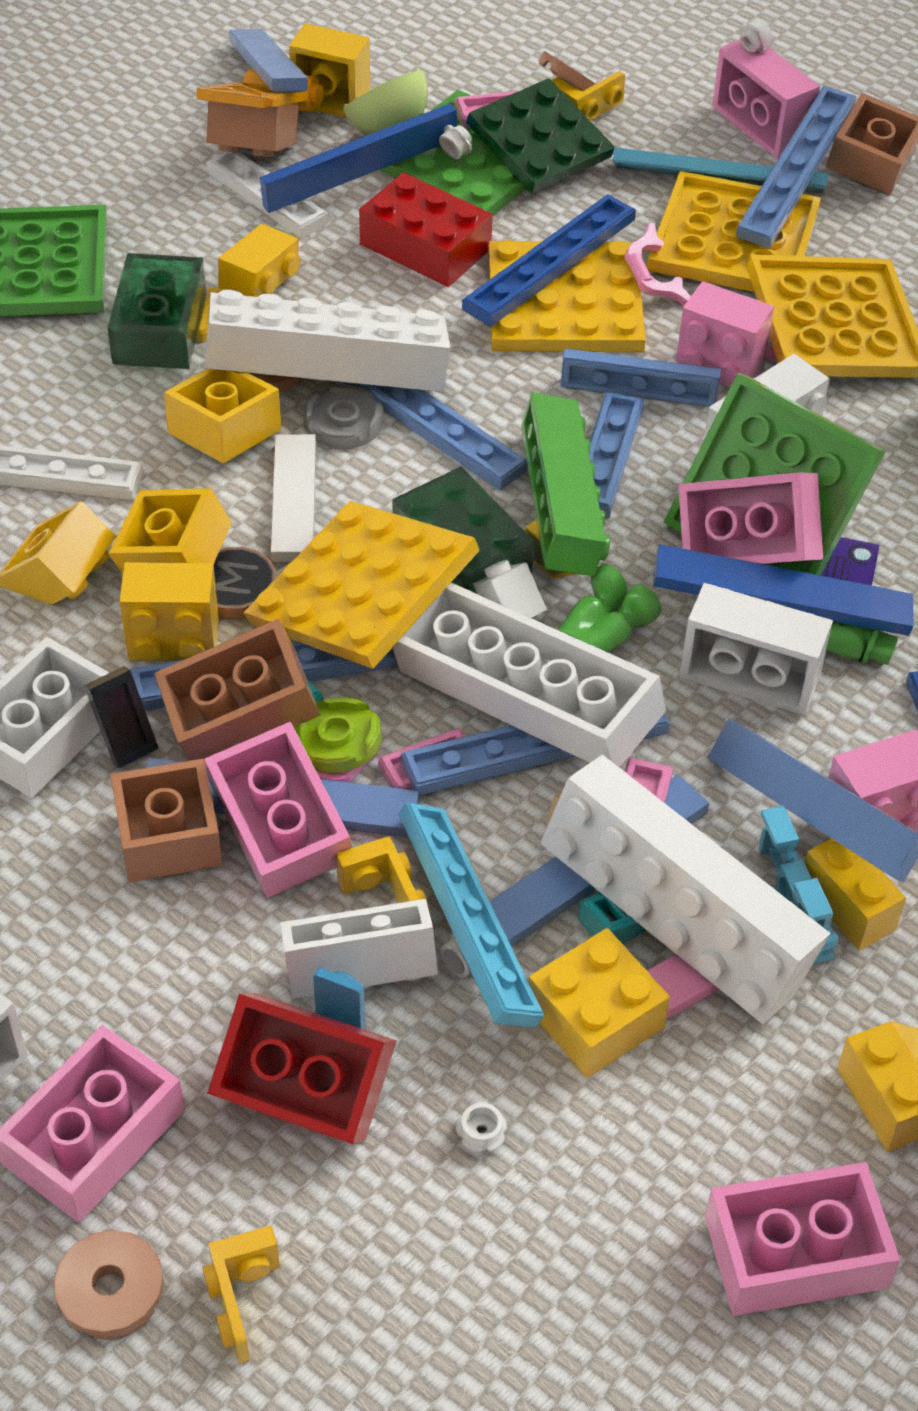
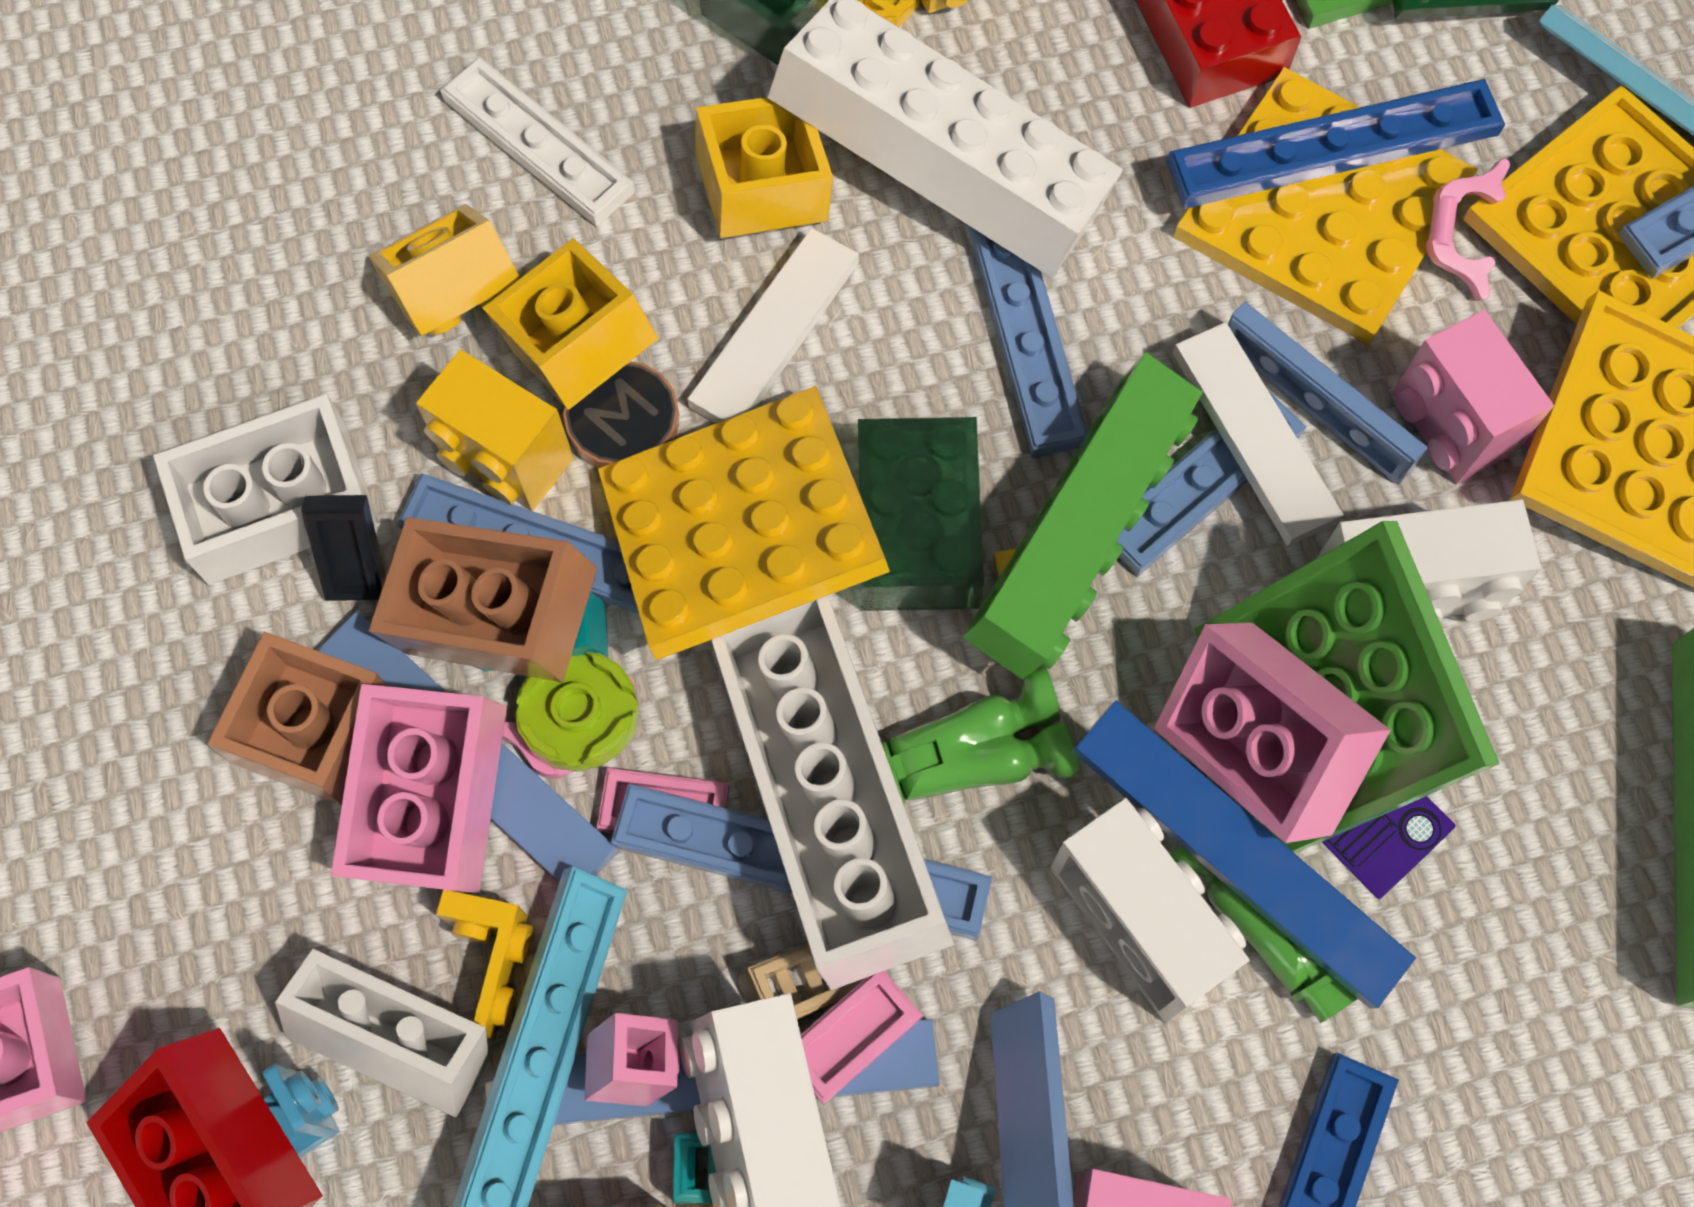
camera: 35 degrees right, 20 degrees up
(344, 417) = (915, 244): light grey tile -> none
(512, 588) = (907, 640): white brick -> none
(527, 867) = (632, 1060): none -> bright pink brick
(625, 410) = (1257, 434): none -> white tile

